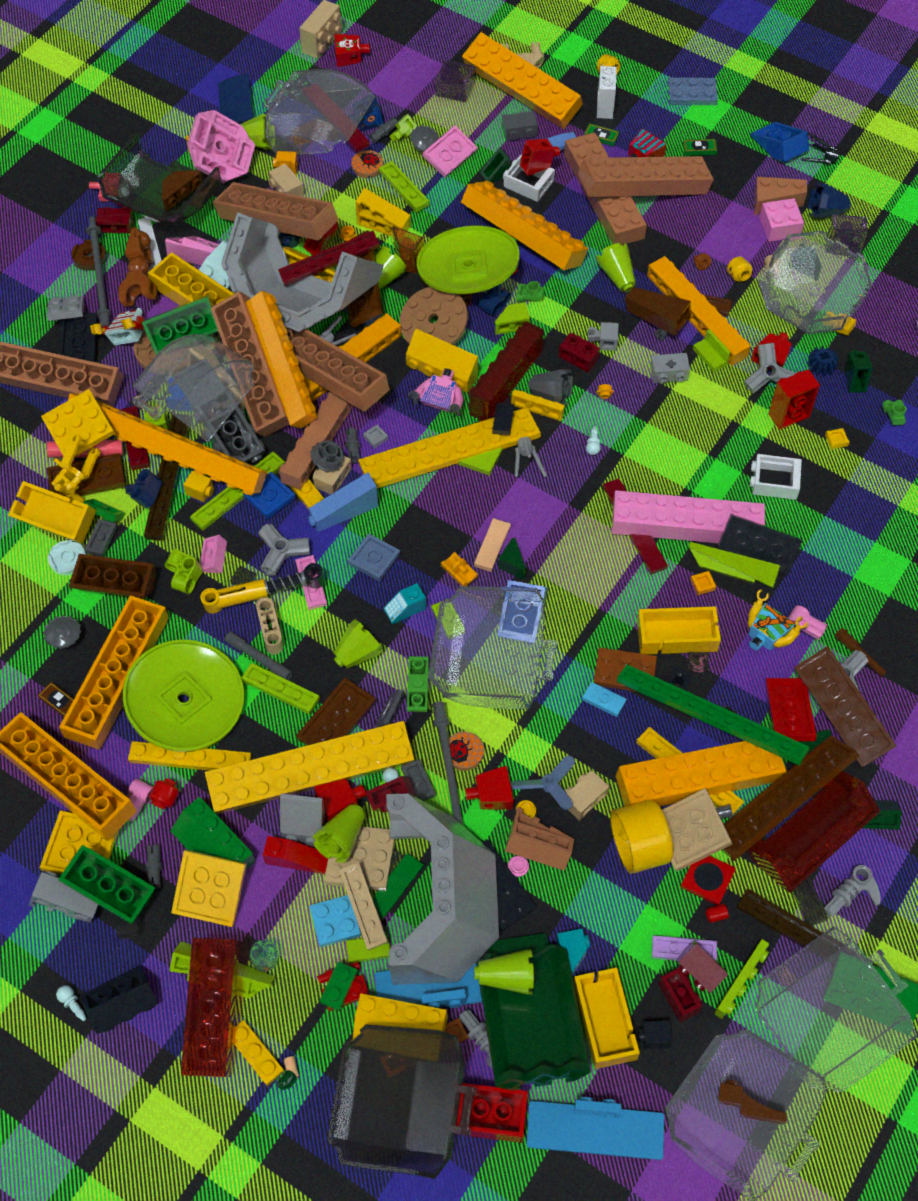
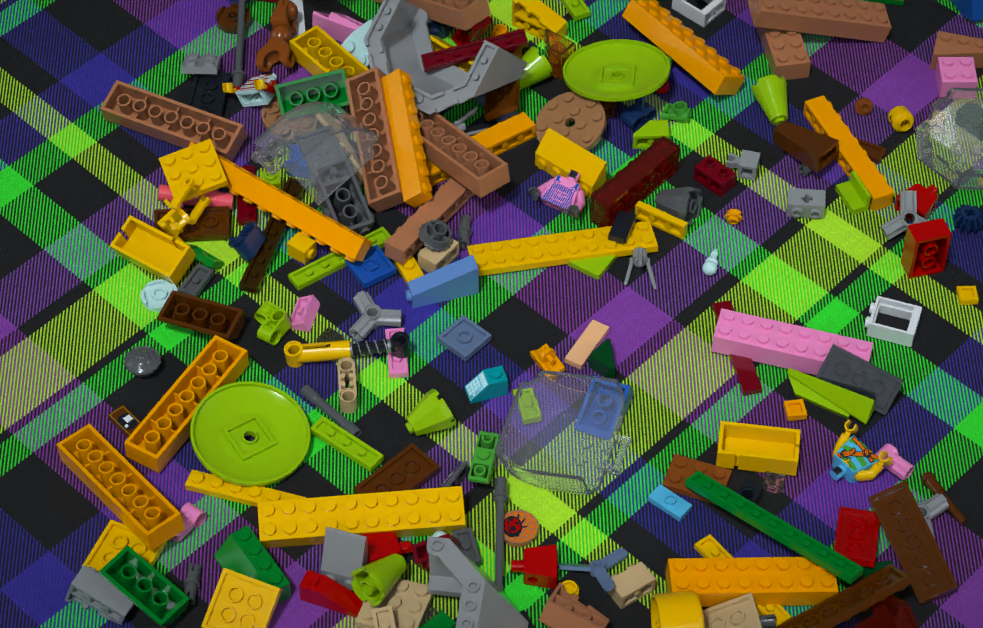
camera: 10 degrees right, 10 degrees down
(164, 794) = (214, 520): red head -> none
(375, 436) = (489, 227): light grey tile -> none

